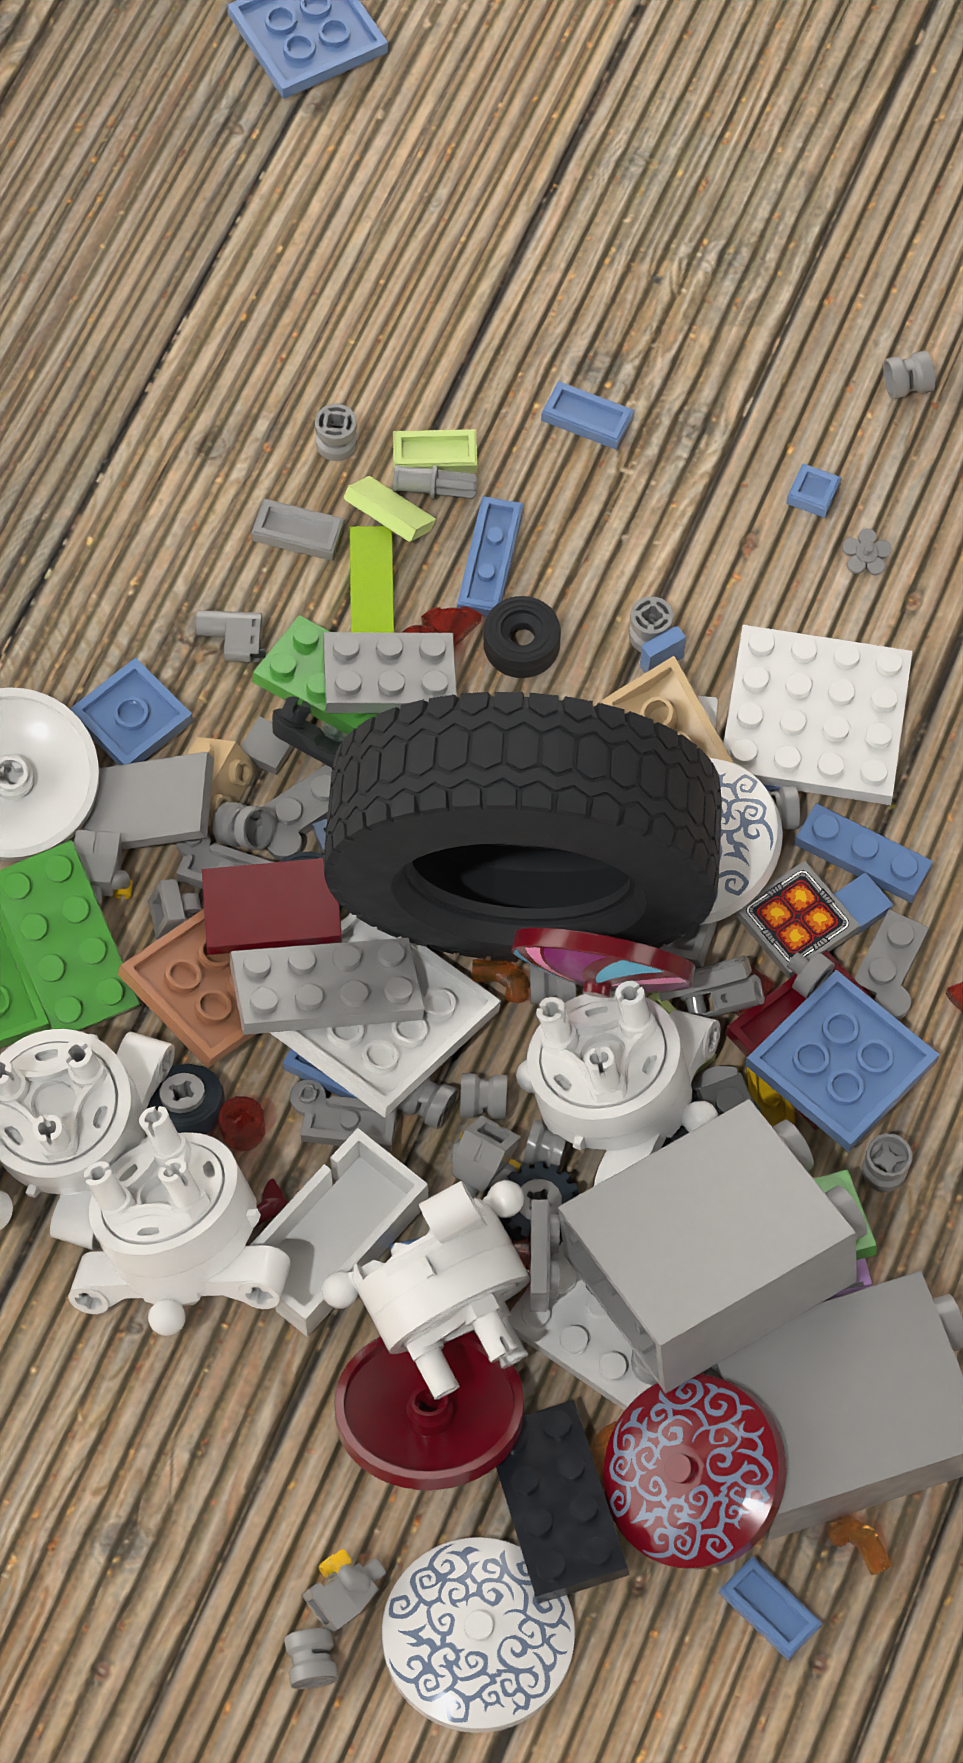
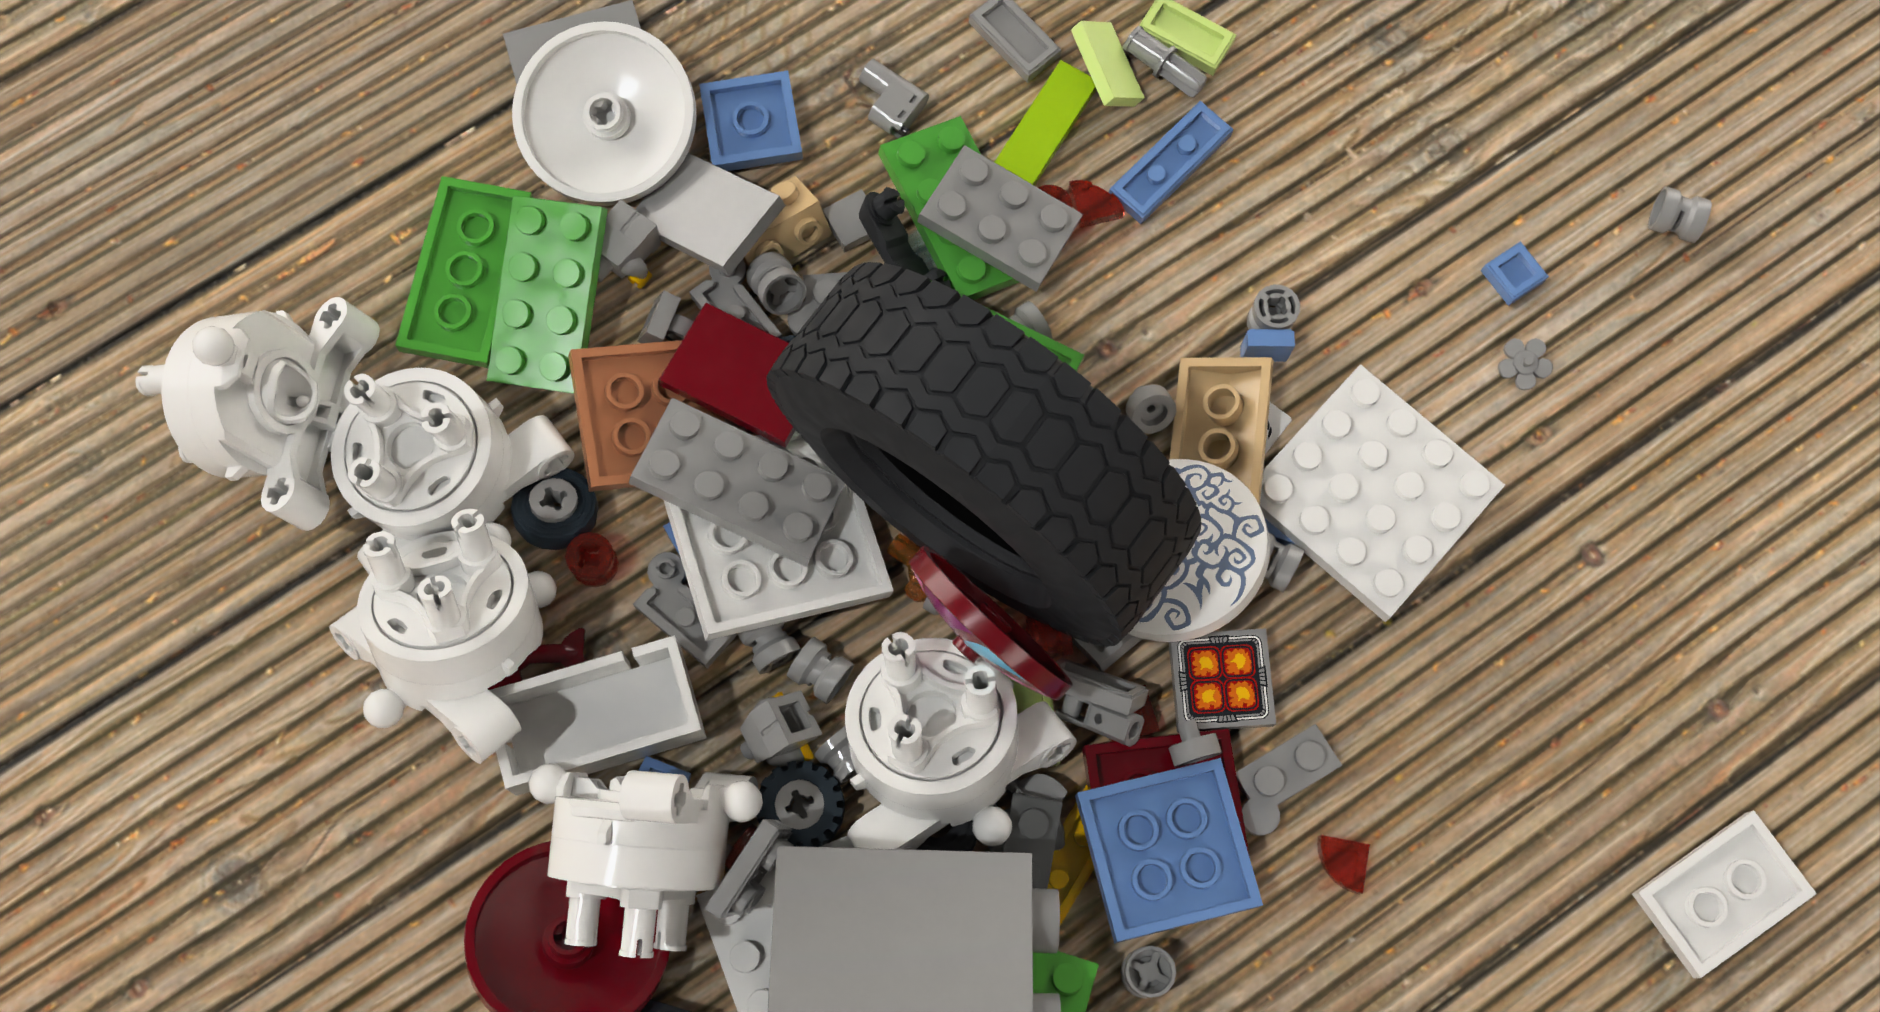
camera: 30 degrees right, 10 degrees up
(516, 614) = (1147, 229): black tyre -> none
(587, 415) = (1349, 80): medium blue tile -> none
(863, 851) = (1329, 652): medium blue plate -> none
(864, 901) = (1297, 700): medium blue tile -> none

